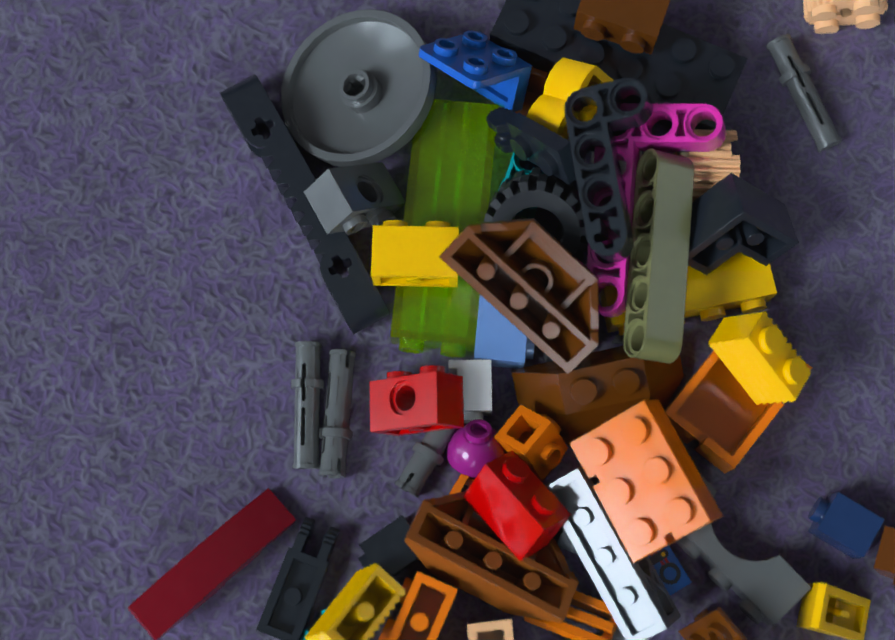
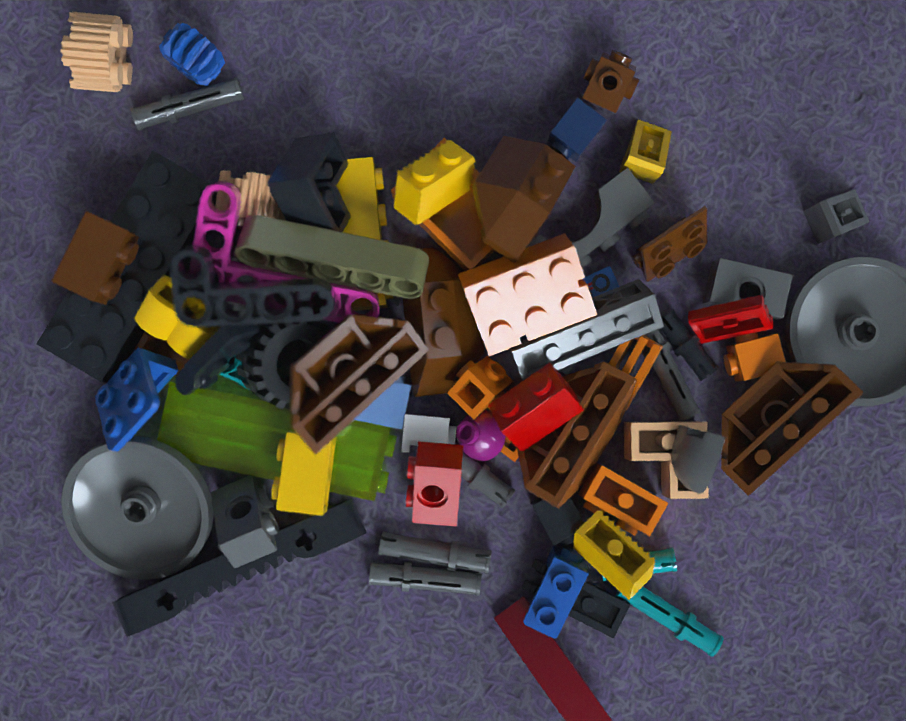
camera: 90 degrees left, 10 degrees up
(305, 554) = (557, 591): none -> blue bracket
(762, 455) = (518, 193): none -> reddish brown wedge
(859, 89) = (192, 54): none -> blue gear

